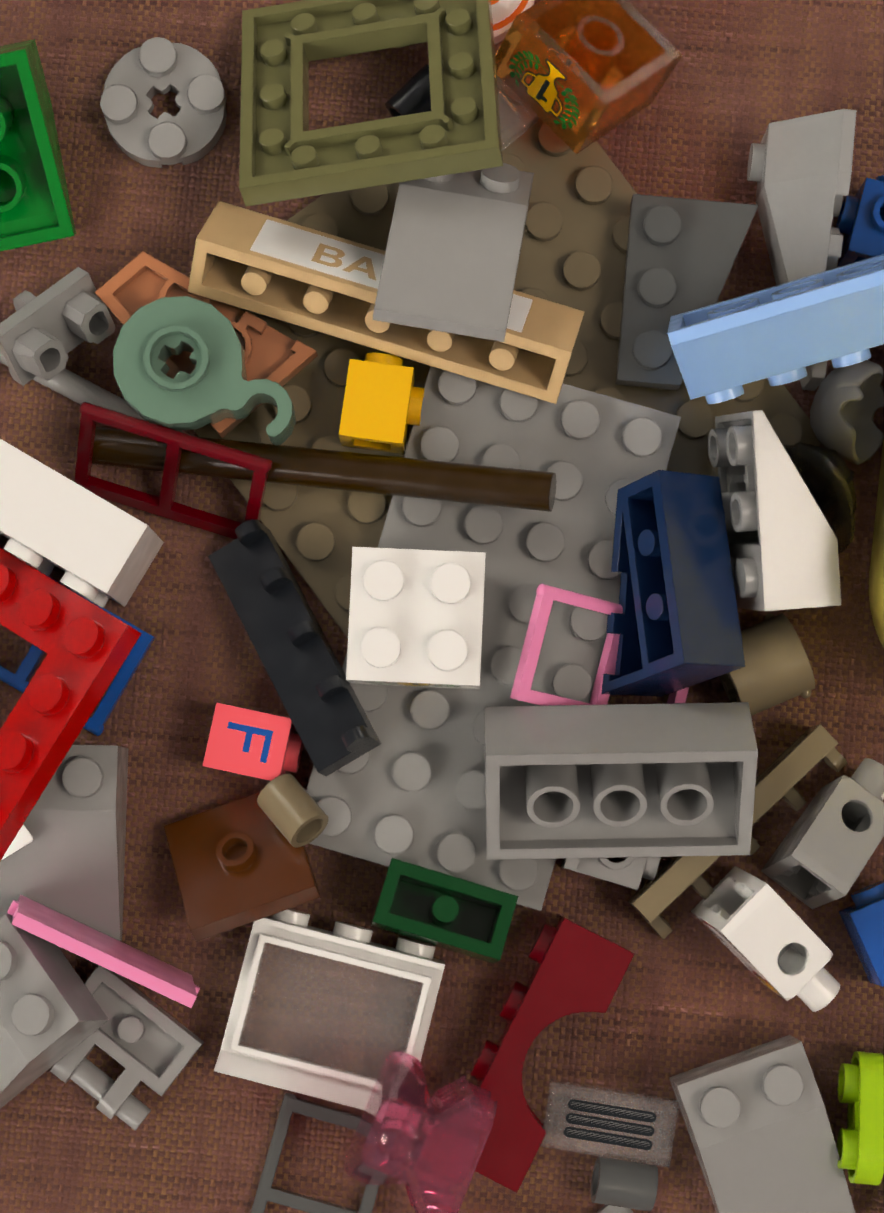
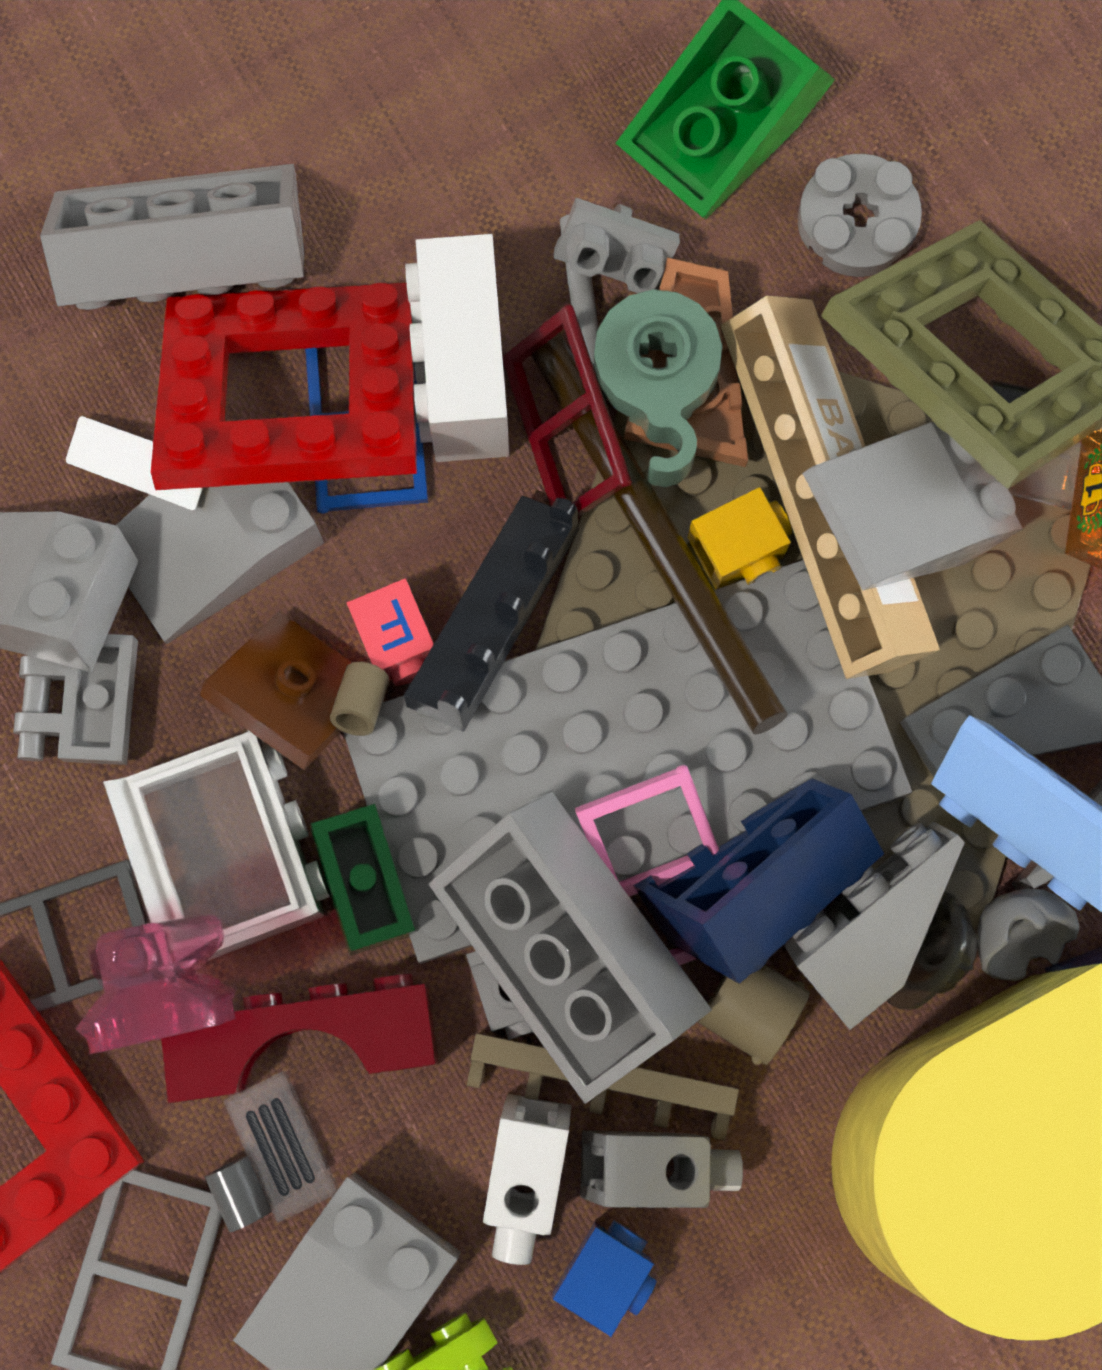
camera: 55 degrees right, 5 degrees down
(103, 950) = (142, 627): bright pink piece -> none
(415, 617) = (586, 685): white brick -> none

